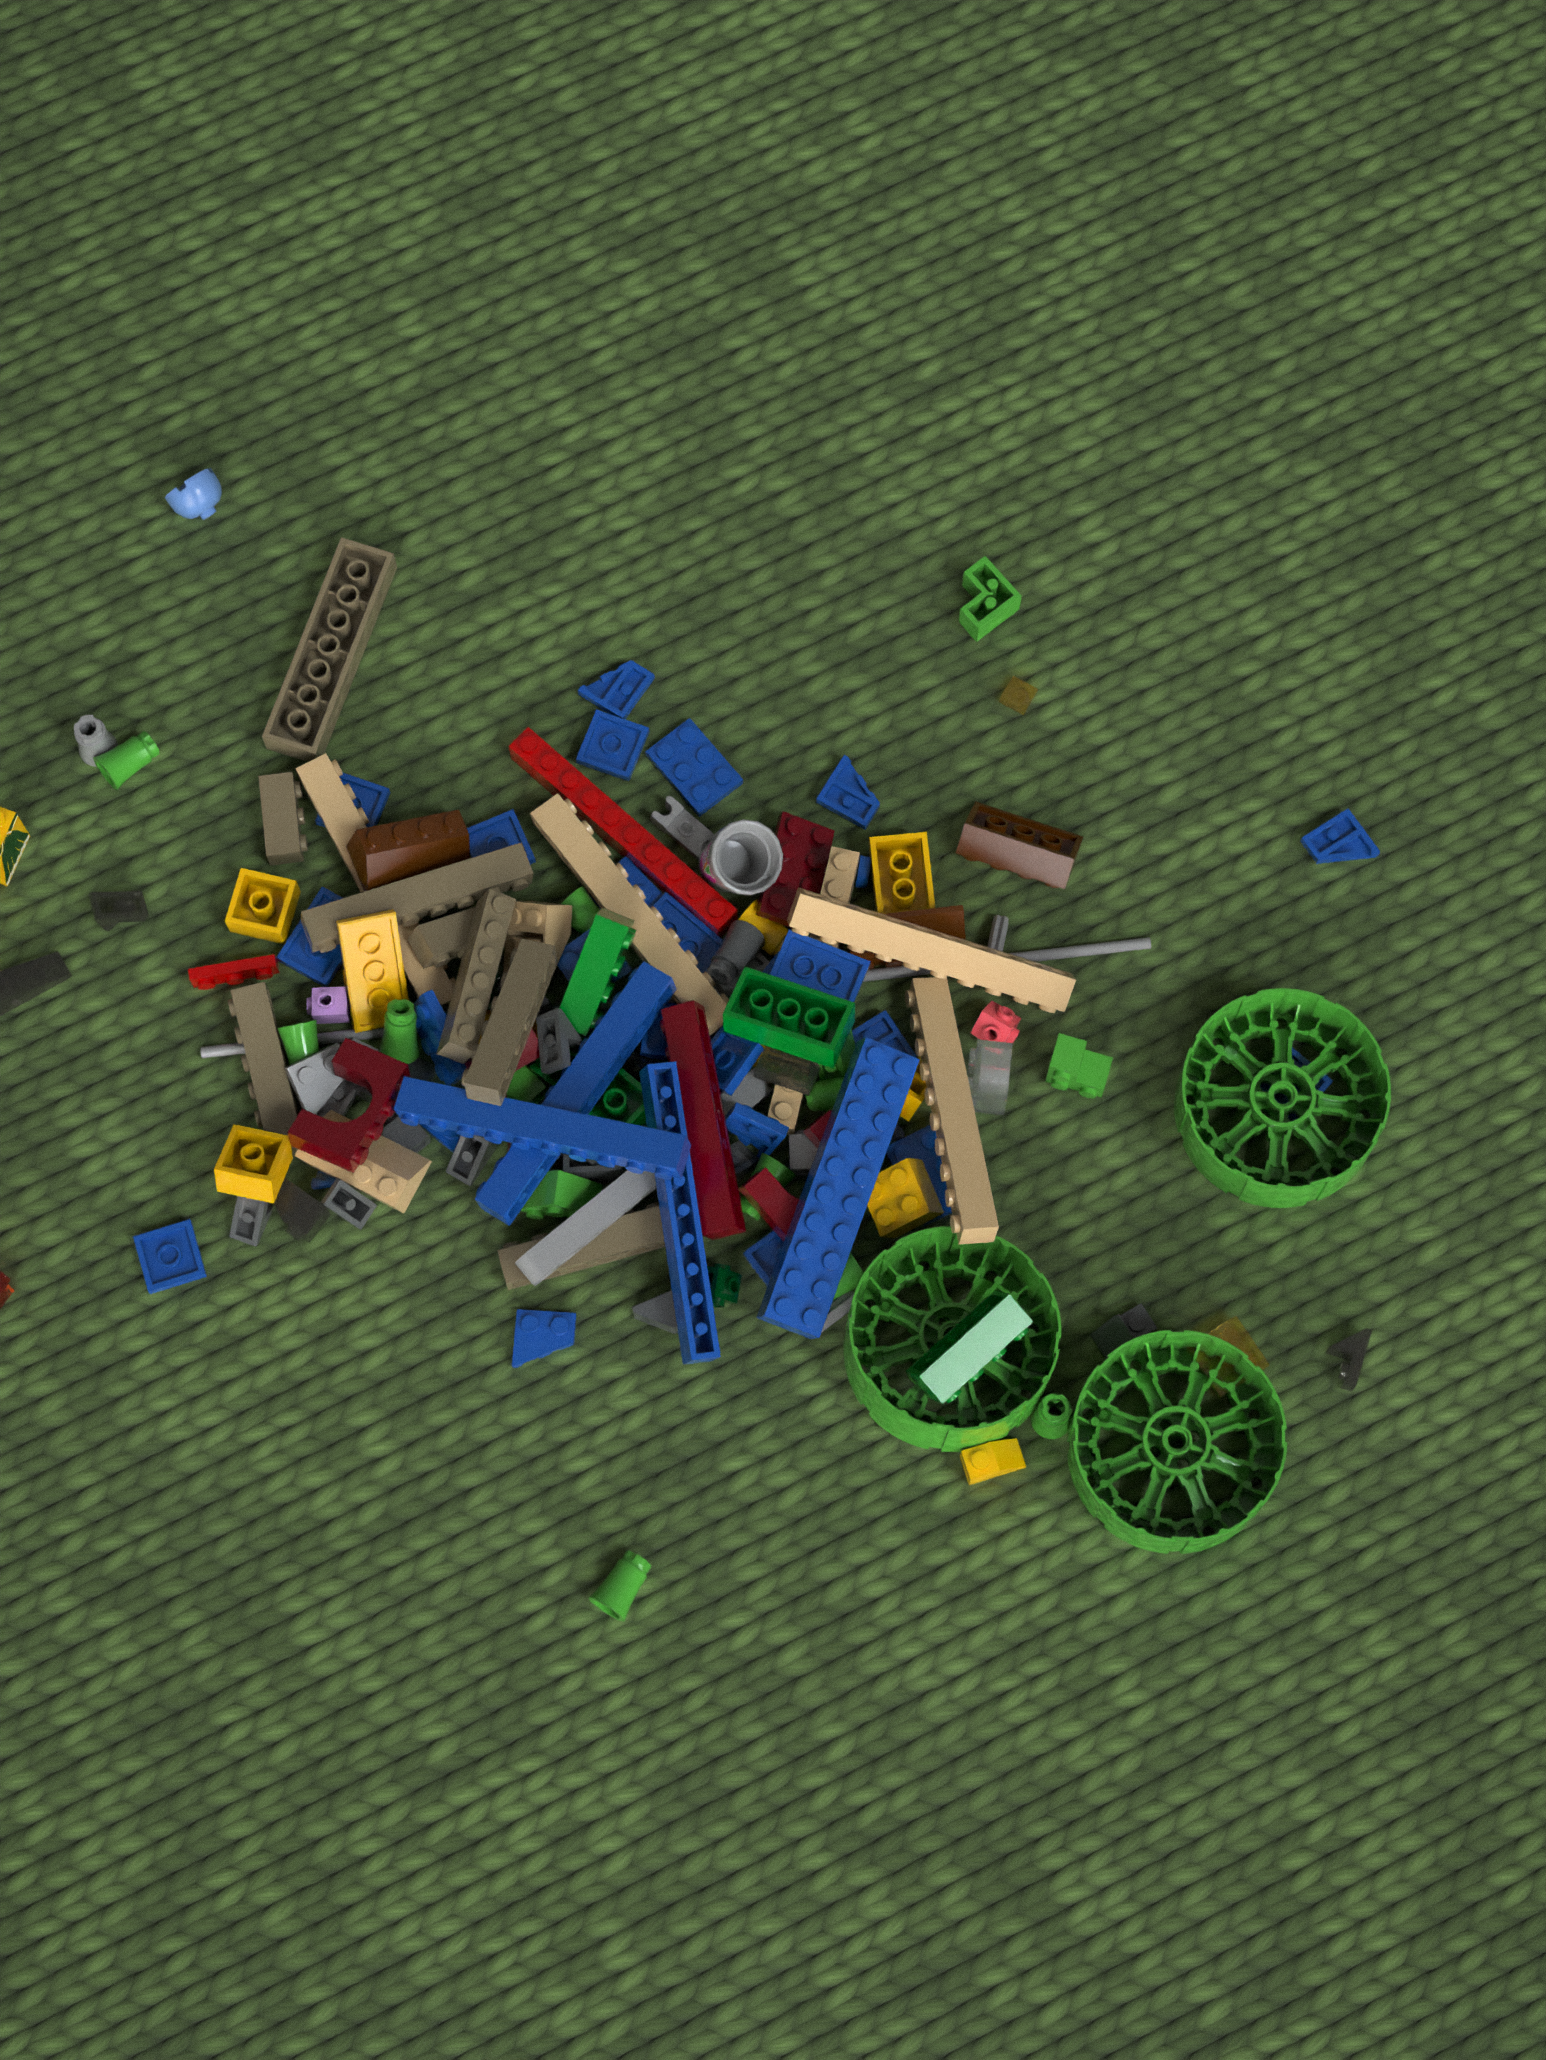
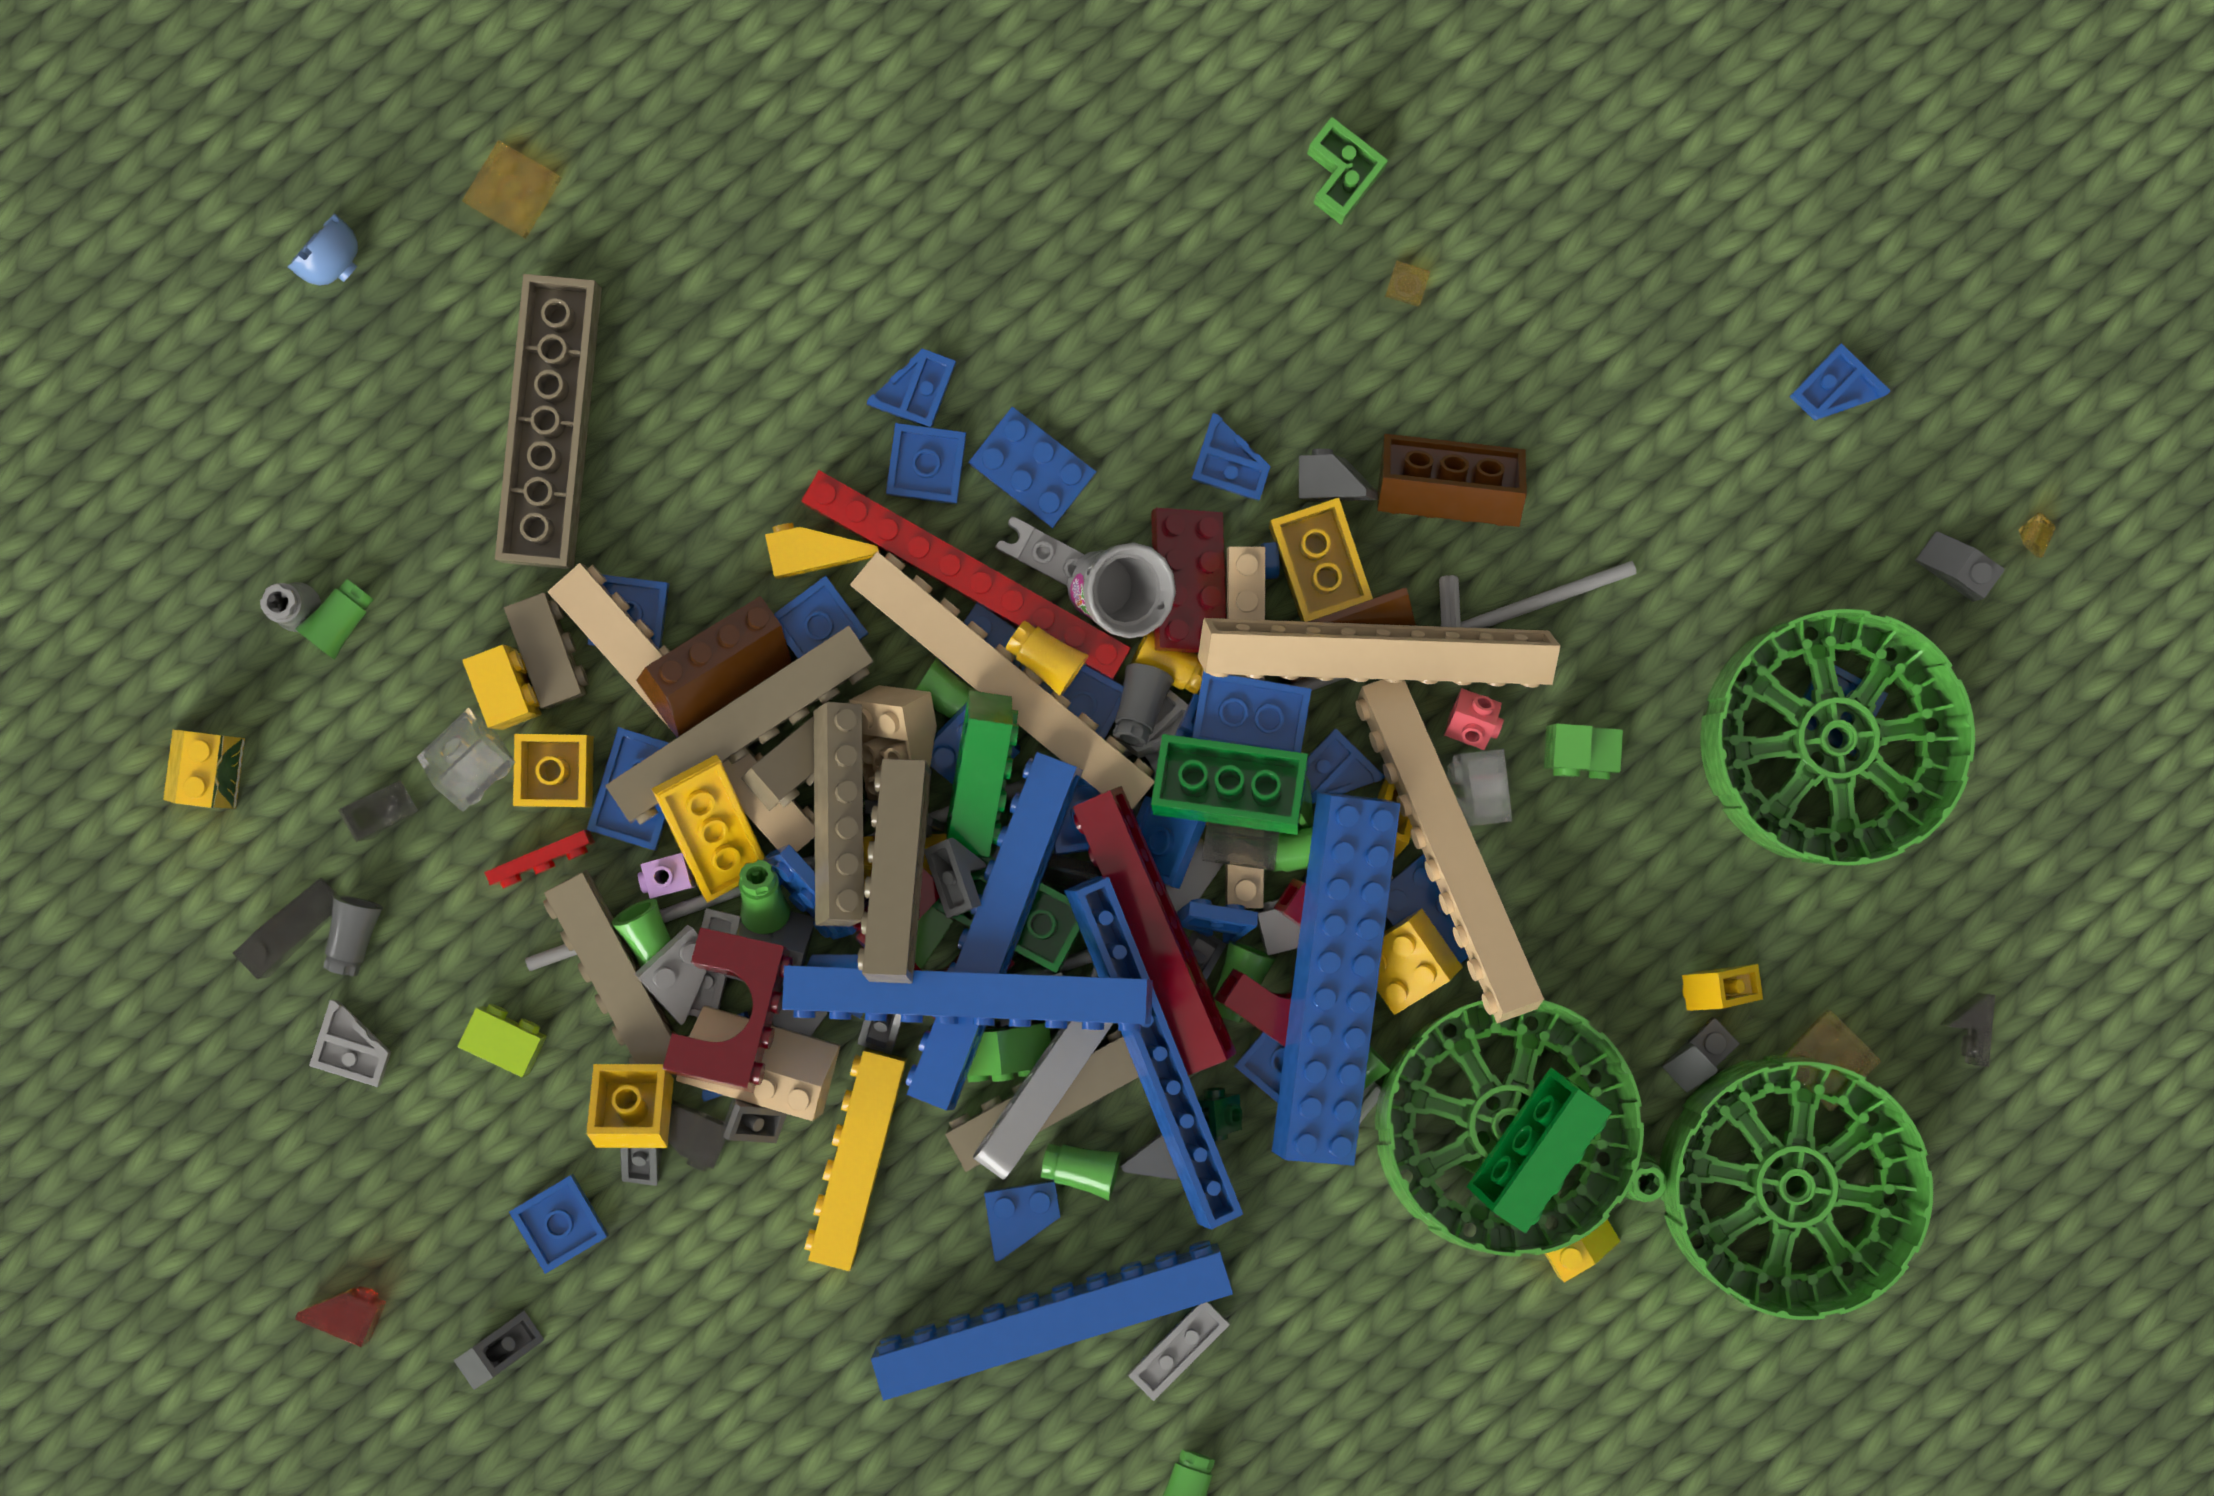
camera: 10 degrees left, 15 degrees up
(43, 1083) = (349, 1048): none -> light grey wing
(69, 995) = (350, 933): none -> dark grey plant
(93, 1344) = (499, 1350): none -> dark grey slope
(165, 1103) = (503, 1040): none -> lime brick
(198, 881) = (466, 760): none -> clear brick
(241, 833) = (502, 687): none -> yellow brick
(348, 483) = (511, 189): none -> clear yellow plate
(421, 1259) = (856, 1160): none -> yellow brick
(504, 788) = (806, 550): none -> yellow slope
(545, 1416) = (1050, 1320): none -> blue brick
(601, 1306) = (1082, 1168): none -> bright green plant
(643, 1469) = (1178, 1349): none -> light grey plate
(670, 898) = (1046, 656): none -> yellow plant
(923, 816) = (1331, 477): none -> dark grey slope
(1152, 1279) = (1722, 987): none -> yellow slope
(1410, 996) = (1960, 566): none -> dark grey slope
(1477, 986) = (2037, 534): none -> clear yellow slope

